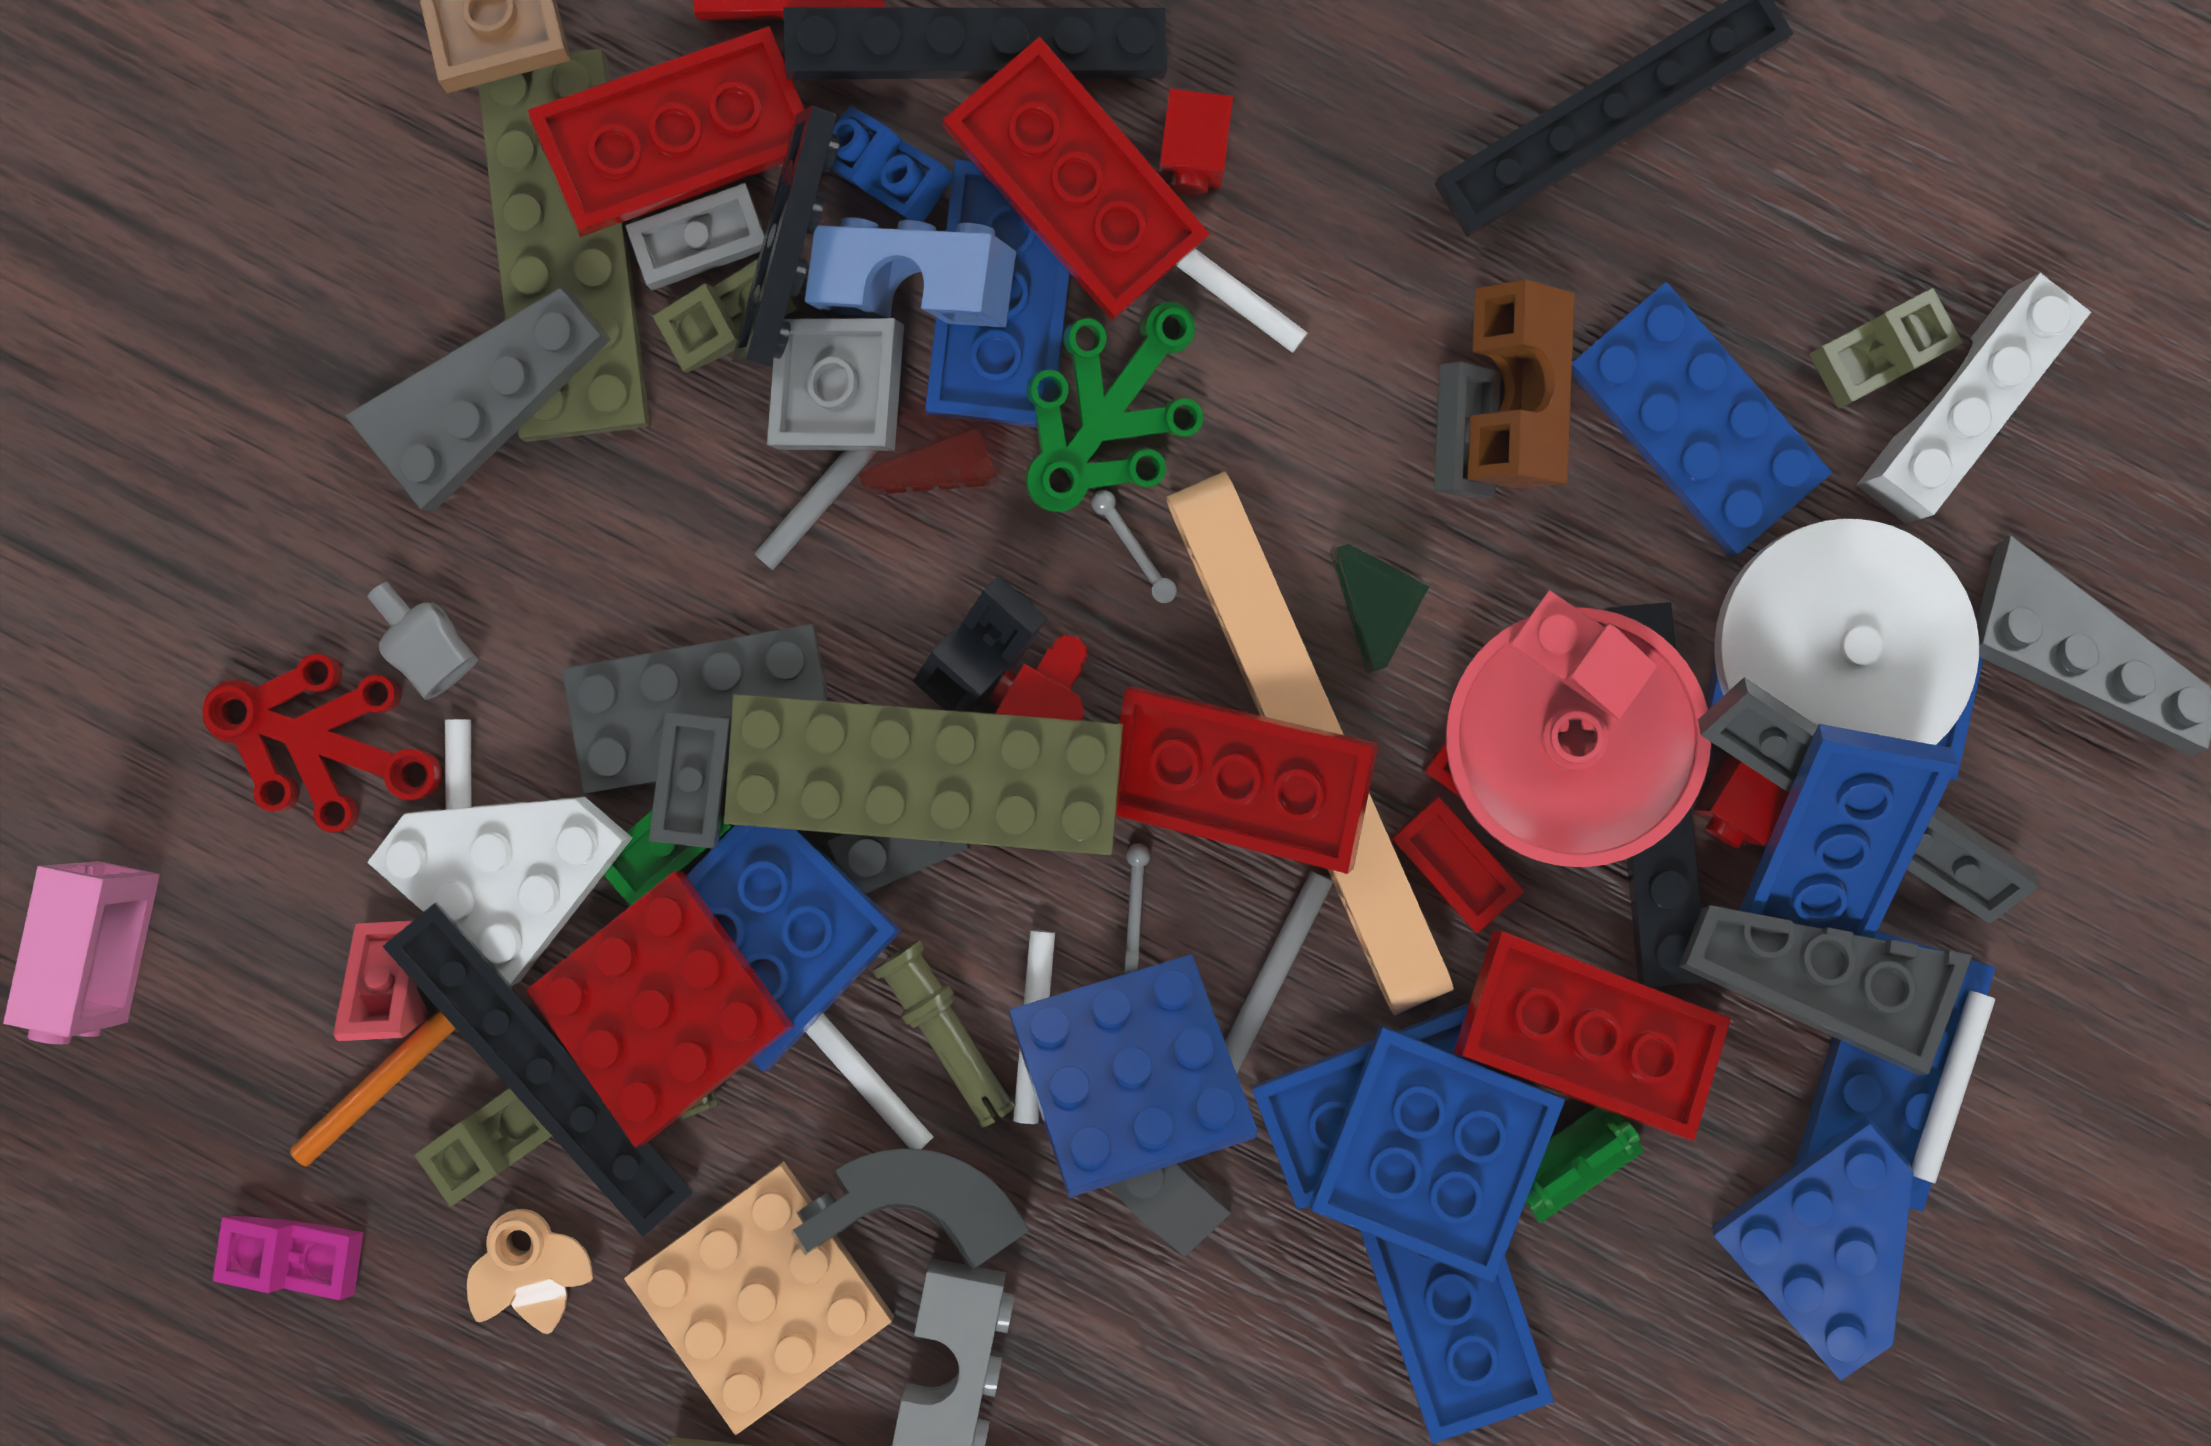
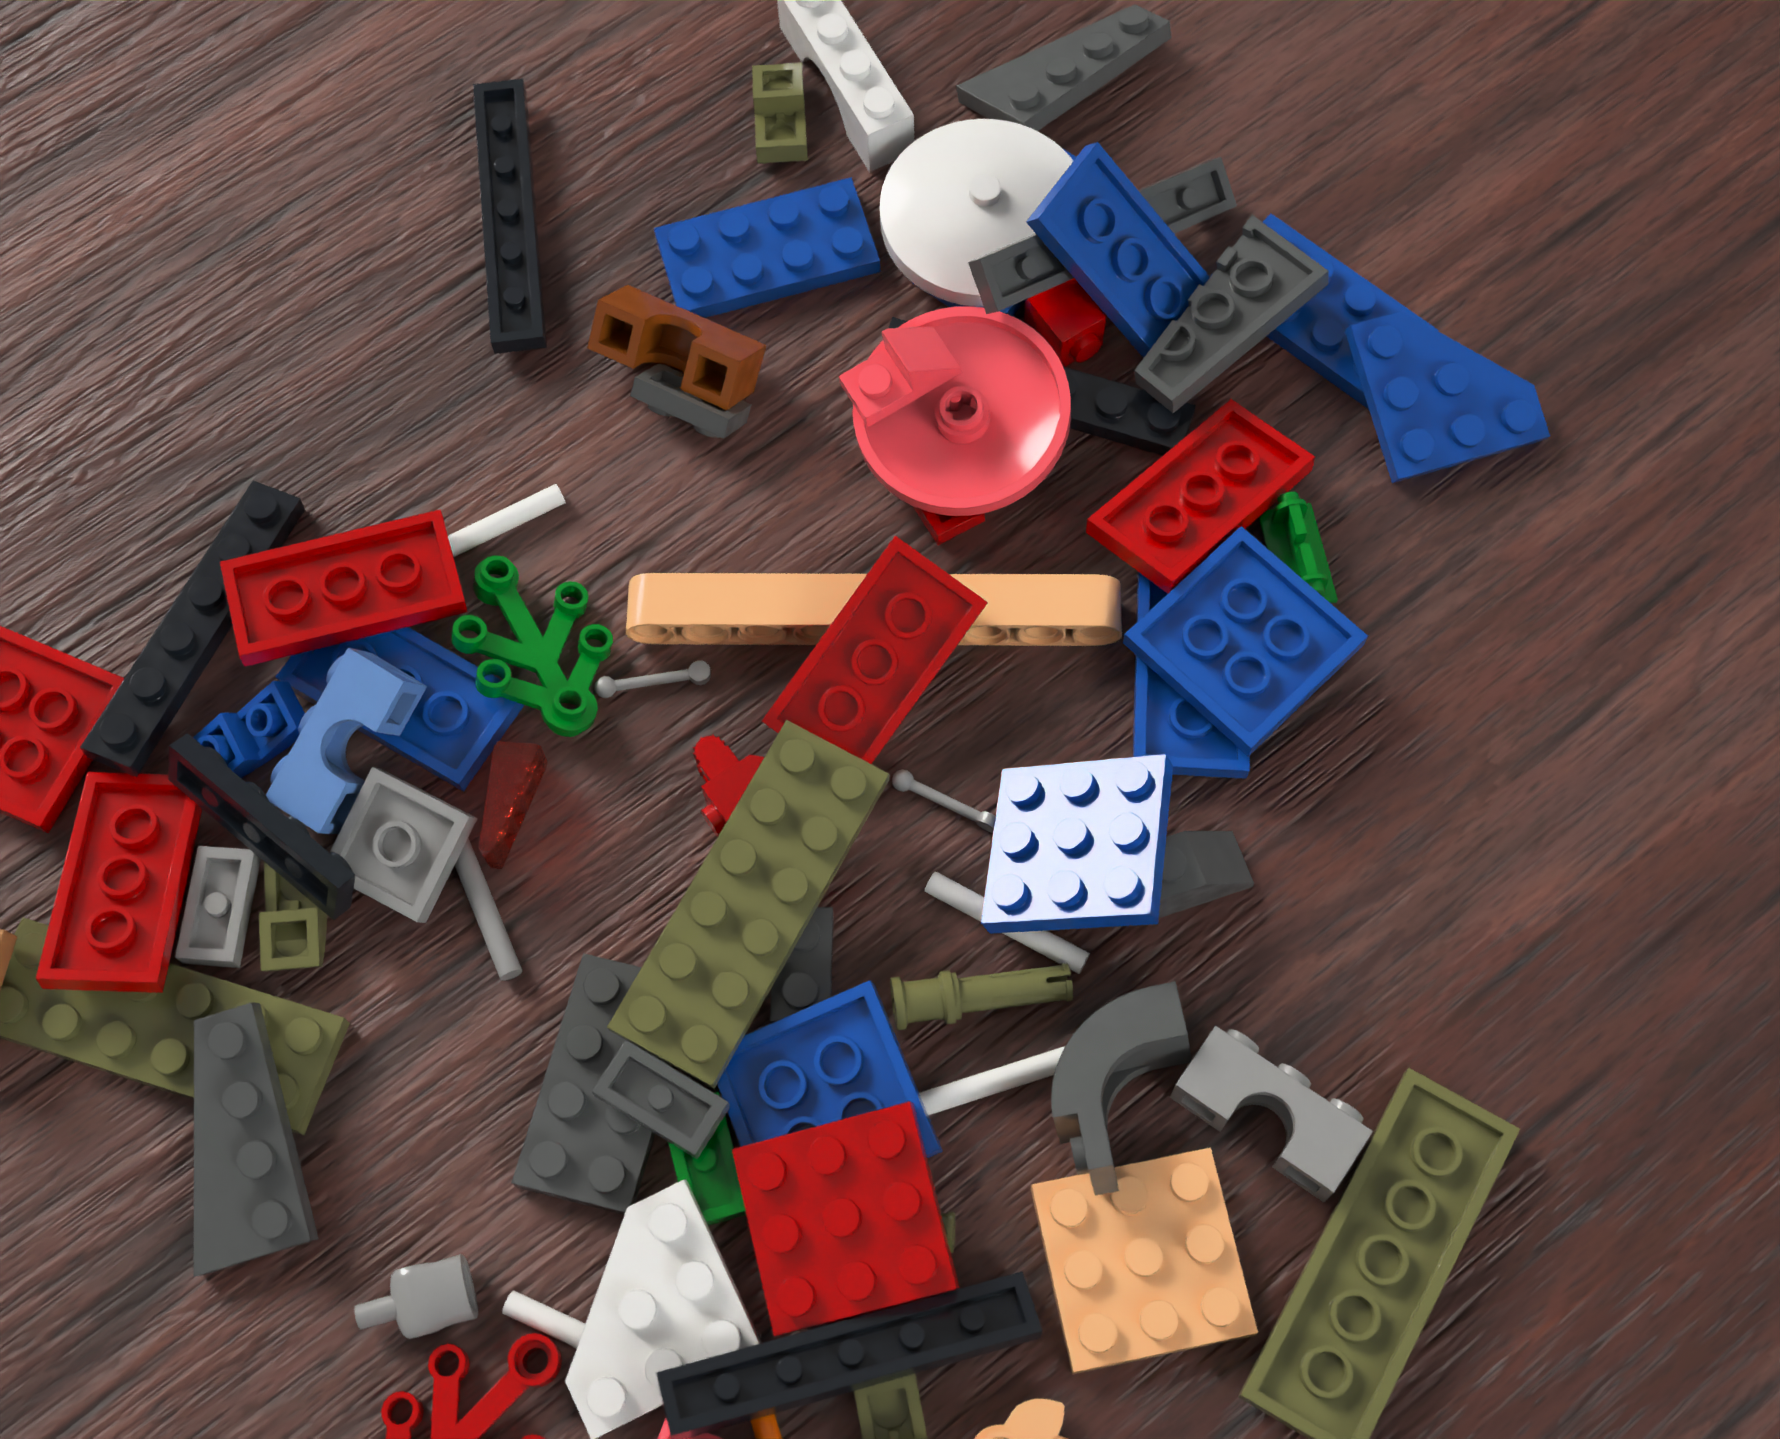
camera: 55 degrees left, 20 degrees down
(981, 648) = (669, 814): black brick -> none
(1195, 140) = (362, 494): red brick -> none
(1276, 967) = (1036, 703): light grey bar -> none
(1377, 601) = (787, 516): clear green slope -> none
(1456, 864) = (1025, 544): red tile -> none
(1458, 1340) = (1401, 696): blue plate -> none
(1952, 1086) = (1346, 266): white bar -> none

